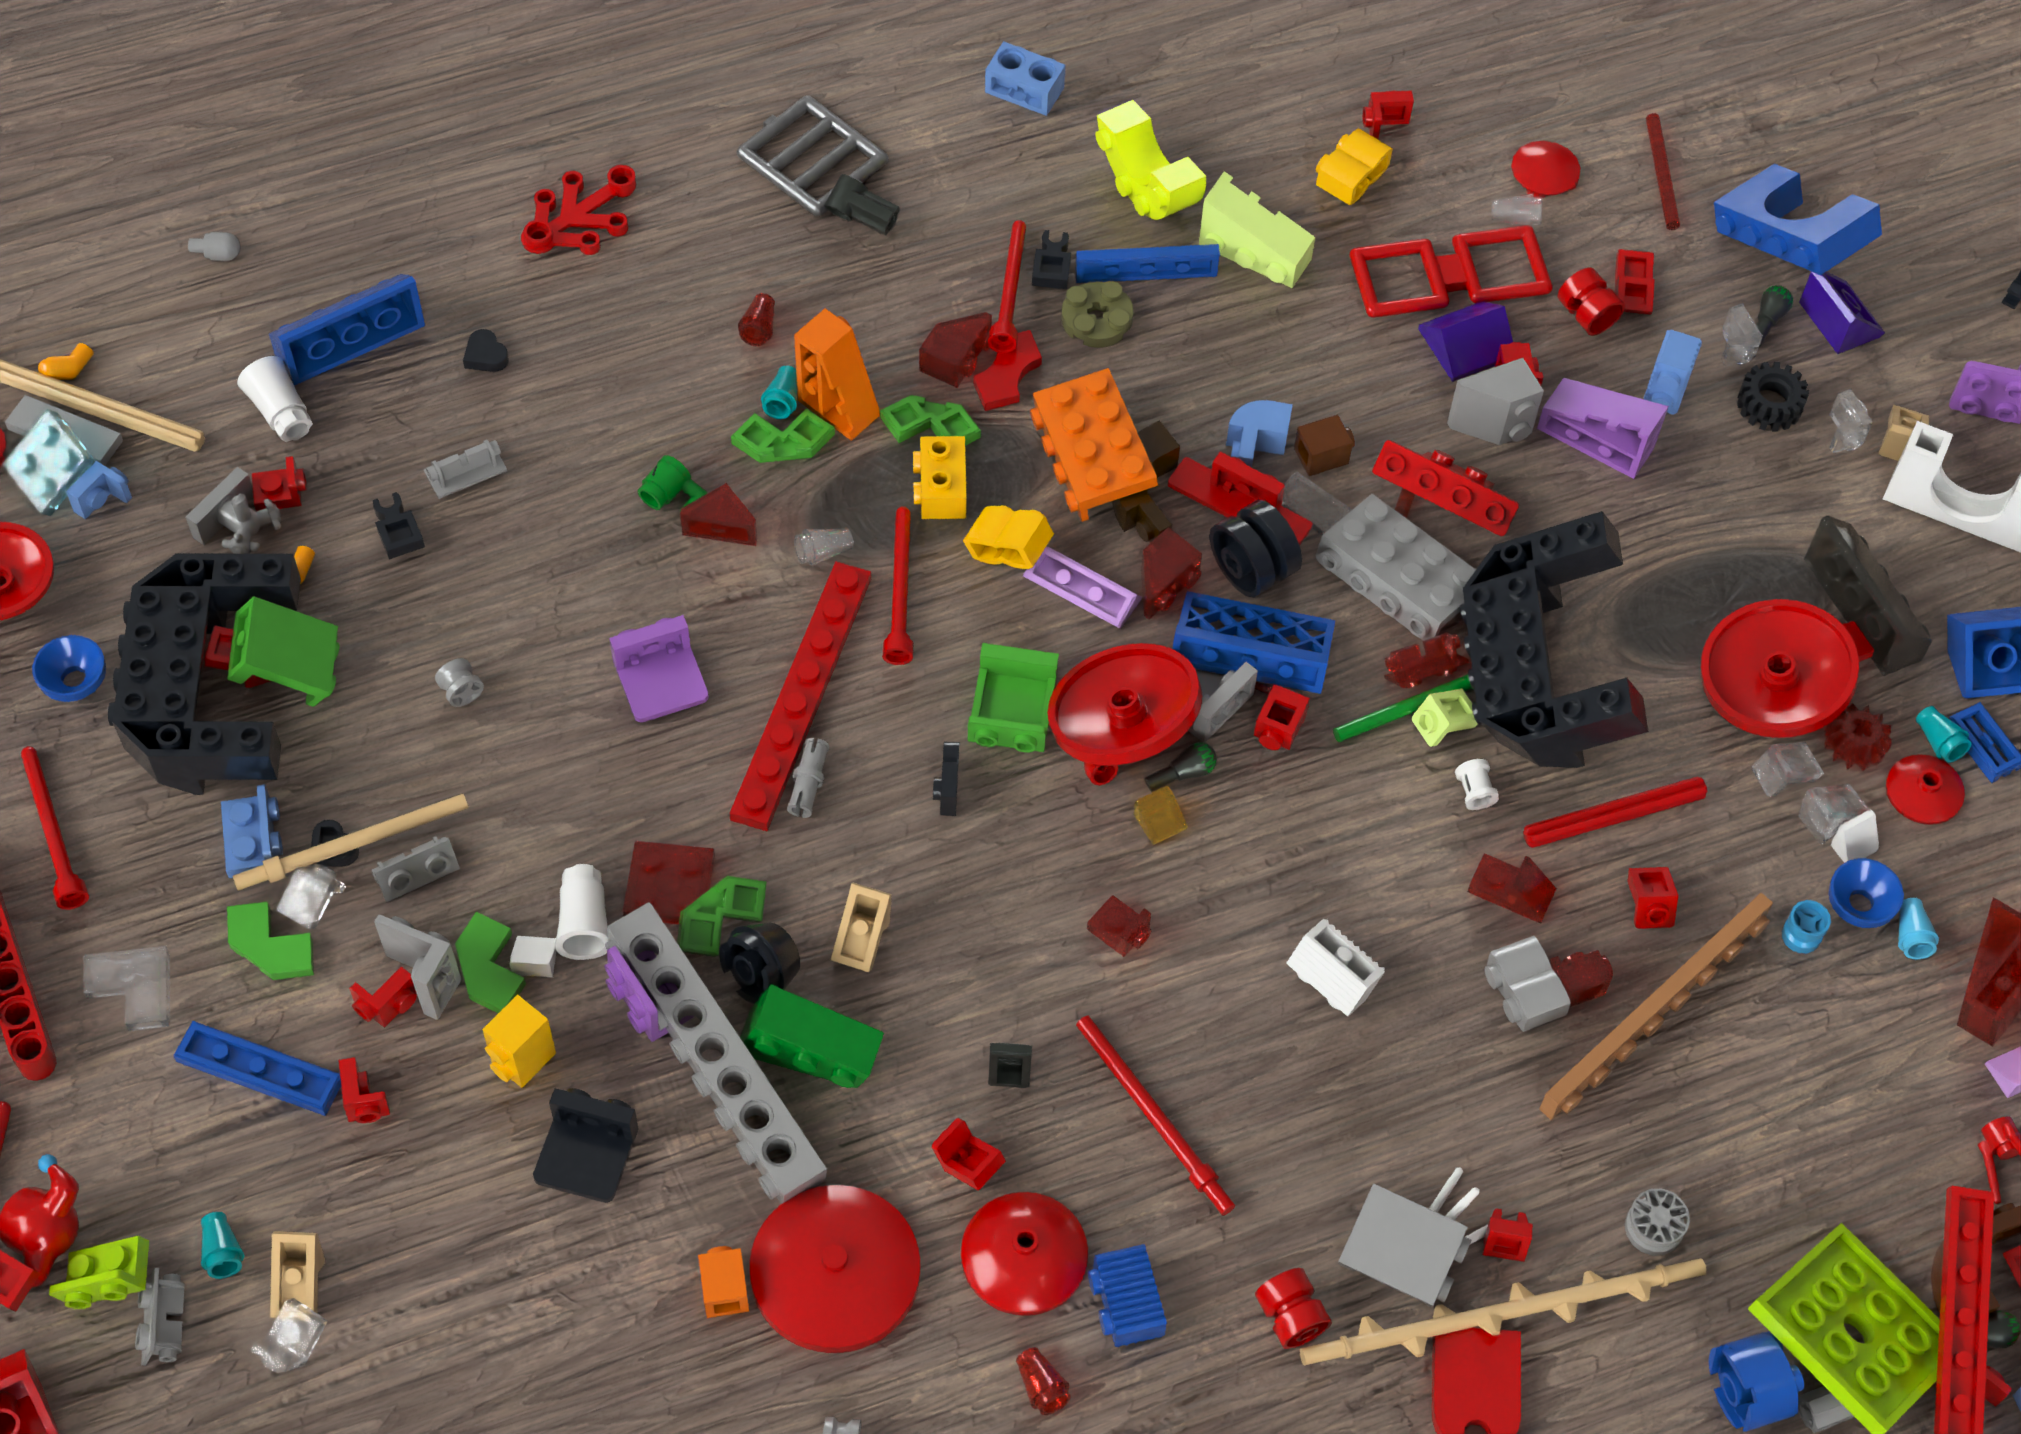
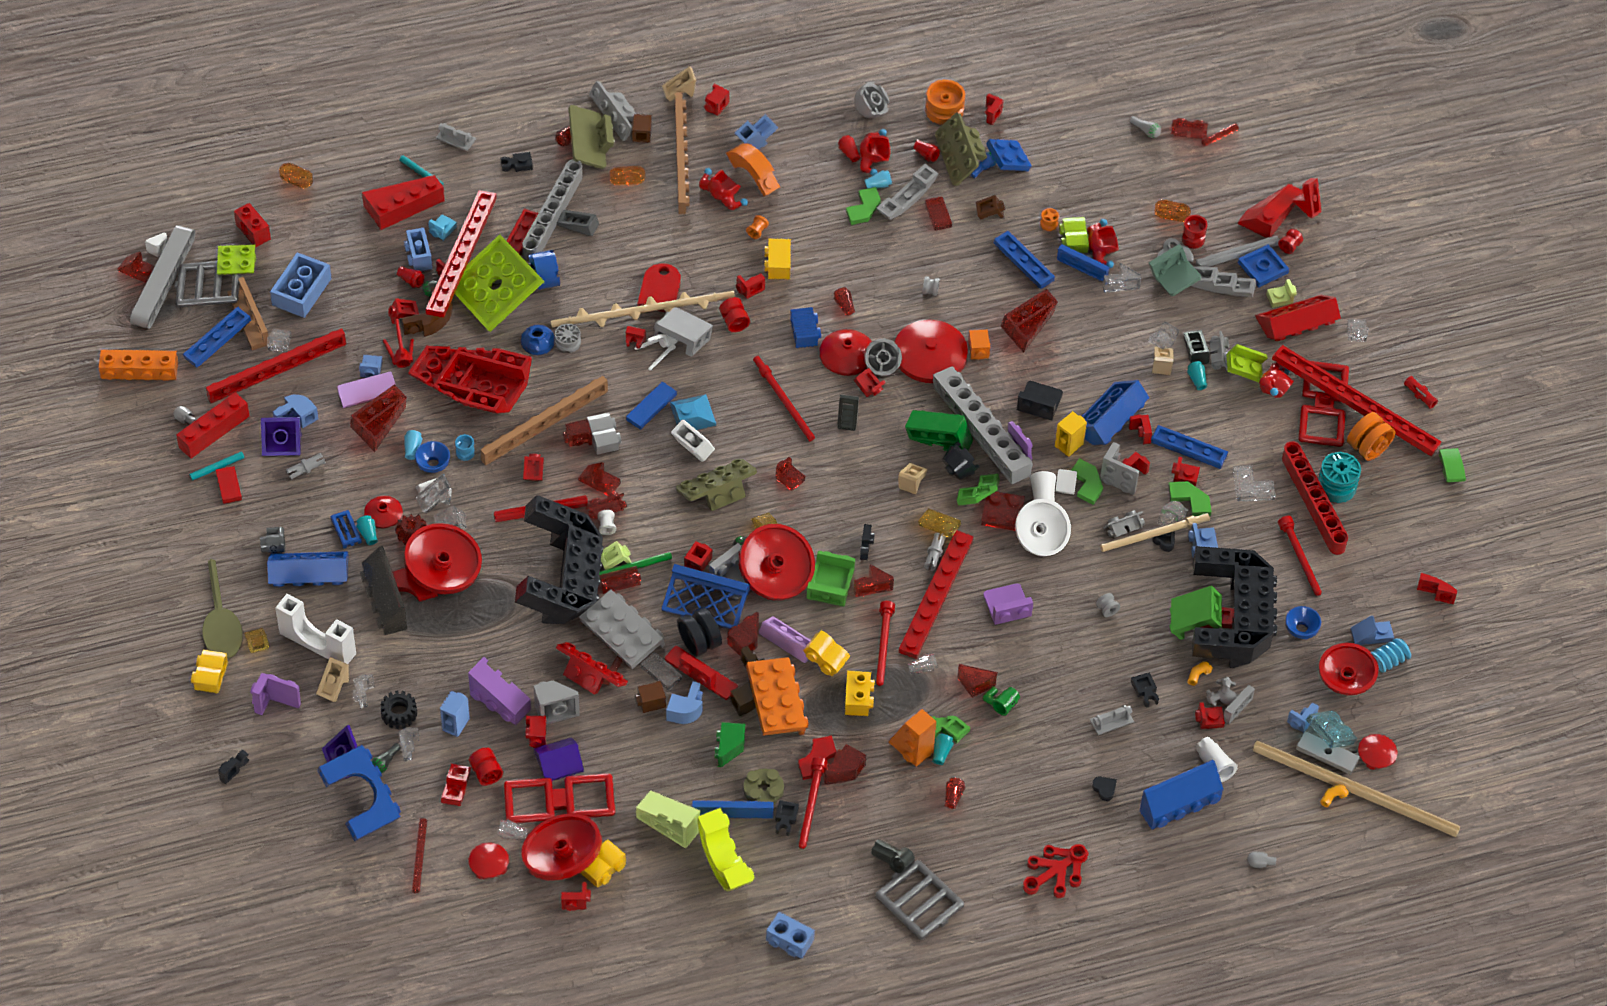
camera: 175 degrees left, 5 degrees down
(206, 1299) = (1198, 348): none -> pearl dark grey slope
(273, 998) = (1185, 472): none -> red bracket
(429, 1128) = (1113, 410): none -> blue slope
(586, 822) = (1053, 524): none -> white dish
(604, 1353) = (1029, 318): none -> clear red wedge
(800, 835) = (939, 522): none -> clear yellow plate
(916, 415) = (869, 736): bright green tile -> none
(918, 695) = (876, 582): none -> clear red slope
(945, 1209) = (882, 357): none -> light grey cylinder
(1166, 375) = (731, 742): none -> green slope
(1261, 1402) = (750, 287): none -> red bracket
(1269, 887) = (719, 486): none -> olive bracket
(1348, 1057) = (694, 411): none -> dark azure slope
(1428, 172) = (561, 847): none -> red dish
(1438, 1072) = (651, 405): none -> blue tile
(1496, 824) = (612, 502): none -> clear red hinge
(1718, 1240) = (537, 345): none -> blue piece
(1837, 1082) = (475, 377): none -> red wedge

